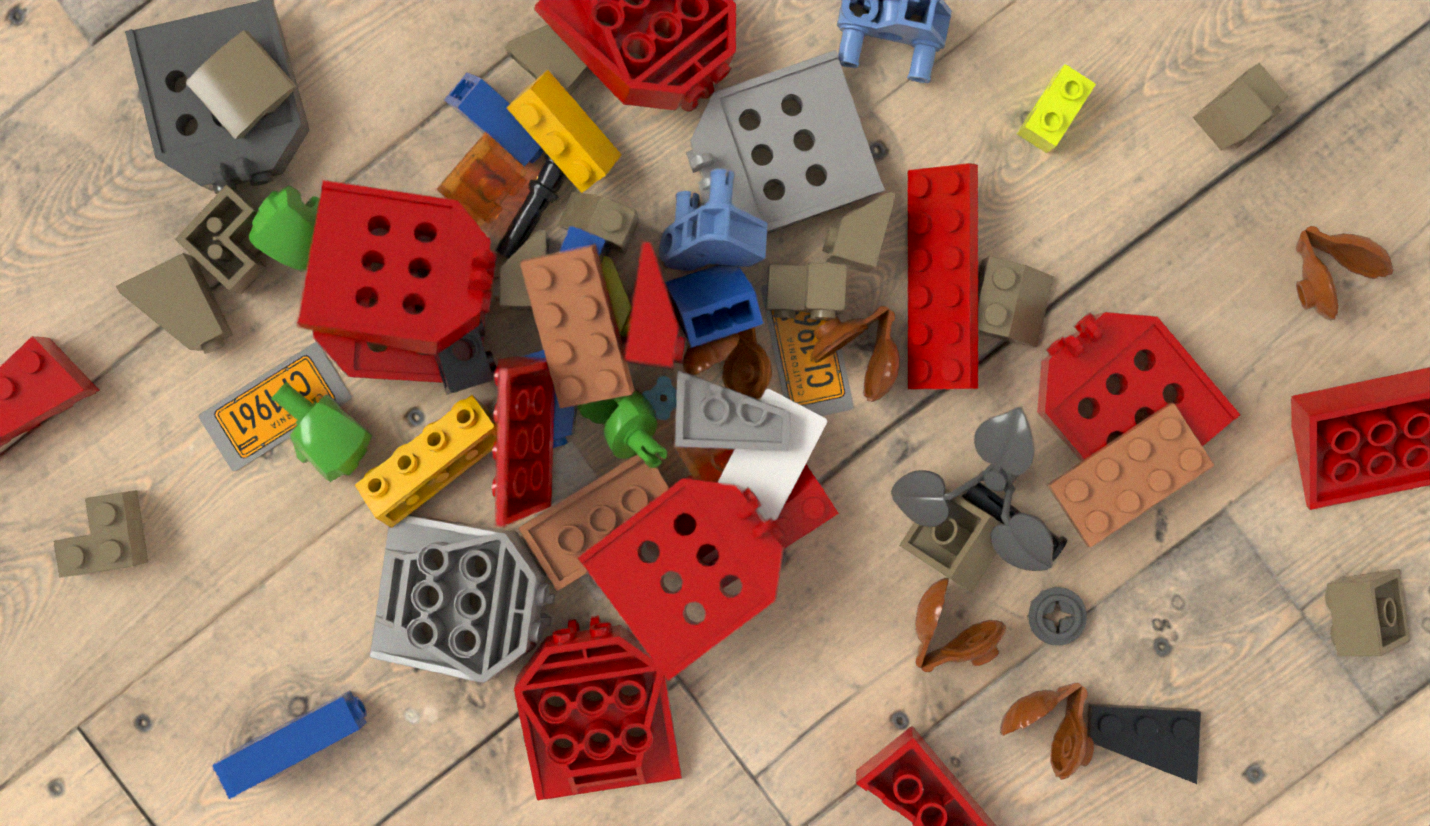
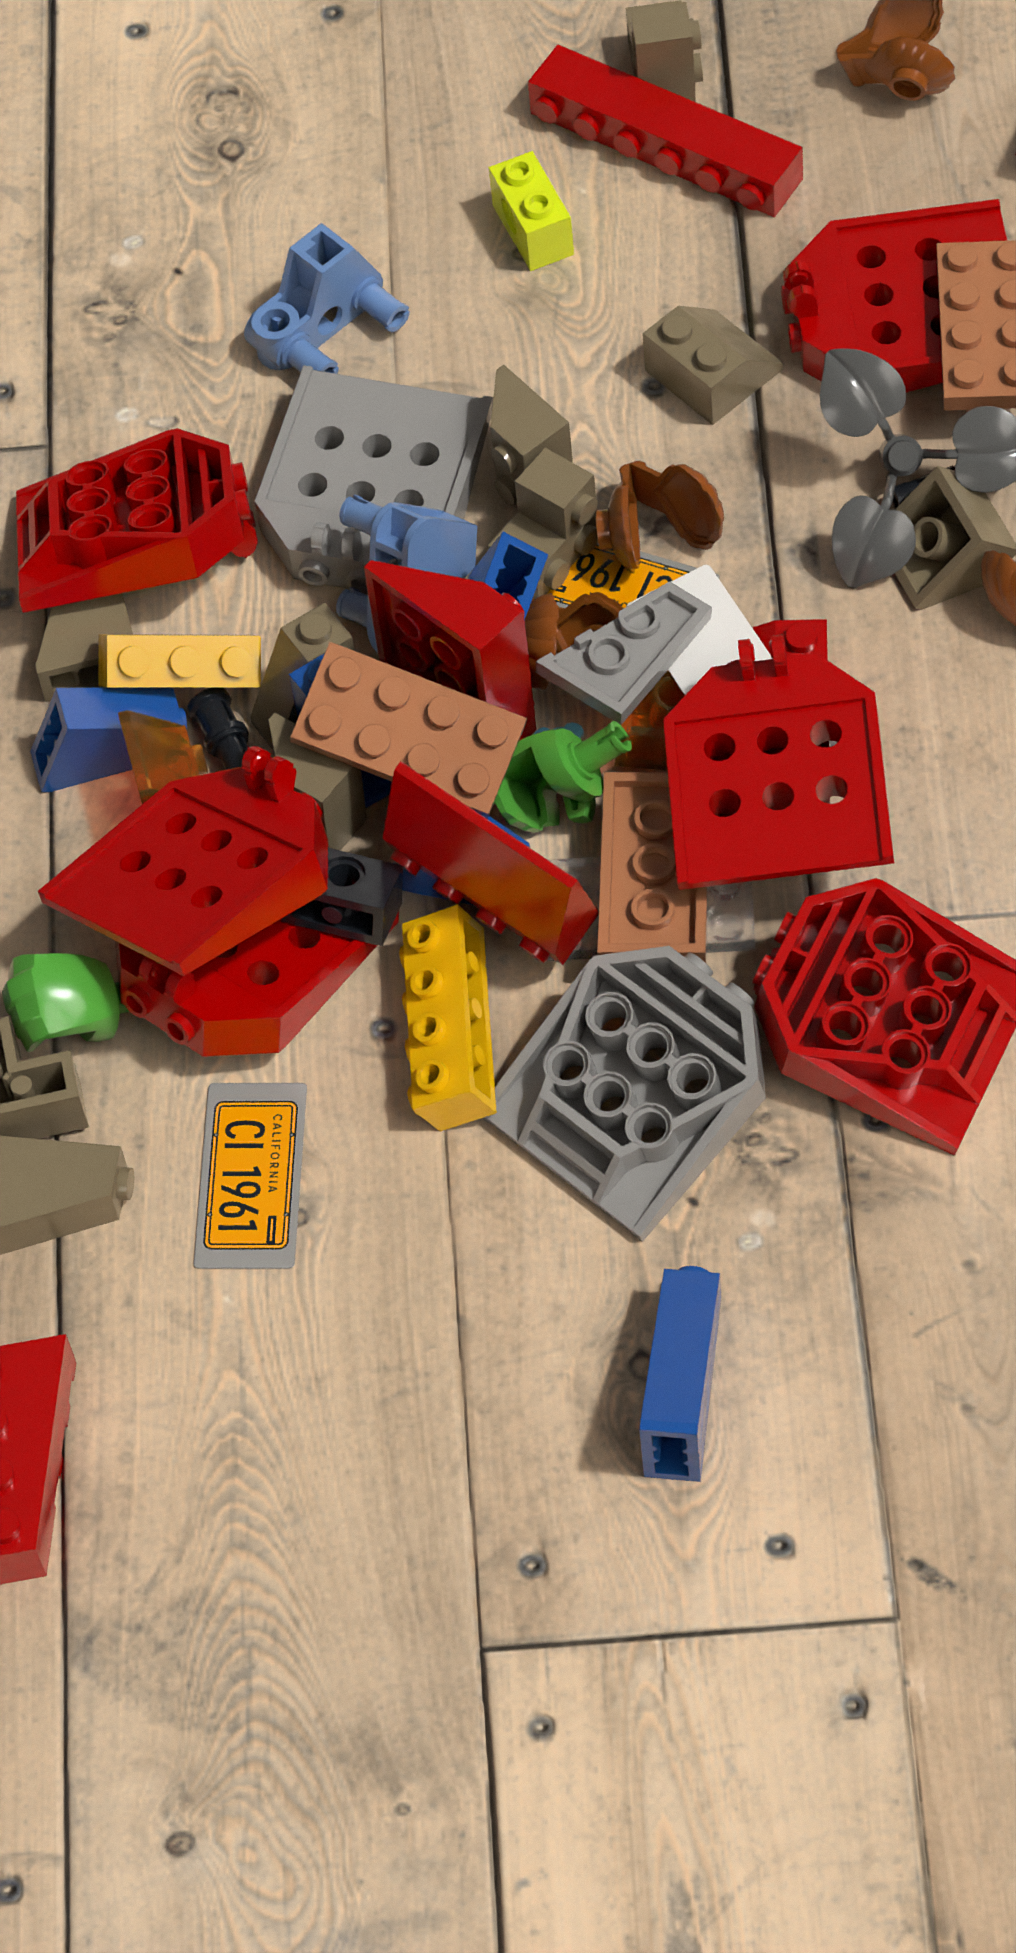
camera: 50 degrees left, 30 degrees down
(113, 541) = (273, 1440): dark tan brick -> none
(324, 433) = (325, 1109): bright green piece -> none
(943, 277) = (638, 396): red plate -> none
(1176, 151) = (666, 130): none -> red brick

